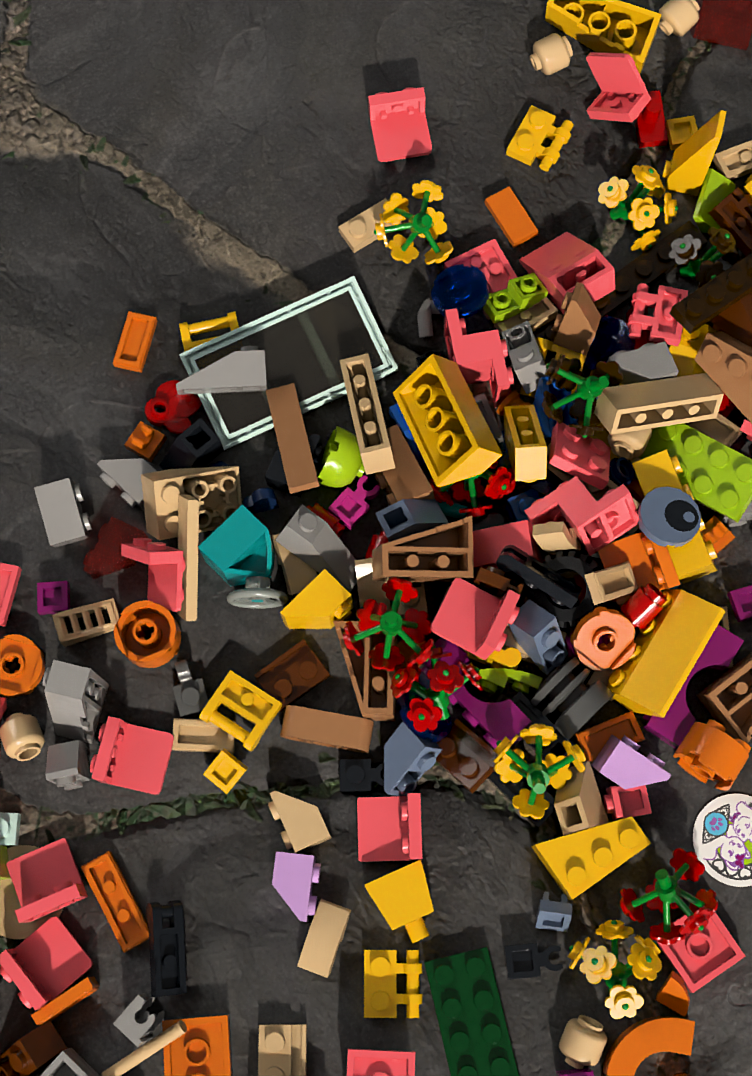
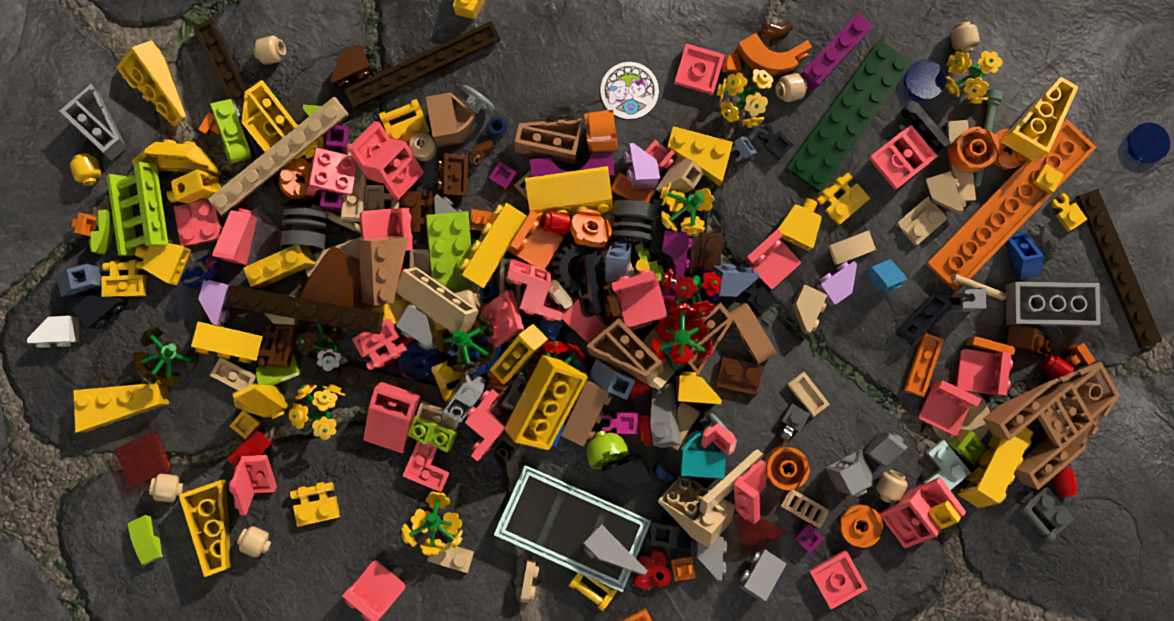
camera: 135 degrees left, 10 degrees up
(132, 756) = (851, 420): coral bracket -> none
(225, 771) = (816, 366): yellow plate -> none
(239, 581) = (721, 437): none -> coral bracket
(247, 702) = (774, 385): yellow plate -> none
(255, 945) = (886, 276): none -> dark azure slope
(281, 284) = (528, 590): none -> tan plate
(292, 438) = (618, 484): medium nougat tile -> none
(367, 414) = (572, 454): tan brick -> none
(424, 318) = (482, 476): light grey arm -> none
(460, 289) = (453, 466): clear blue tile -> none
(511, 217) = (379, 479): orange tile -> none
(578, 323) = (422, 384): medium nougat slope -> none
(611, 582) = (559, 246): tan tile -> none
(667, 894) = (690, 101): red plant -> none
(669, 517) = (502, 242): sand blue tile -> none

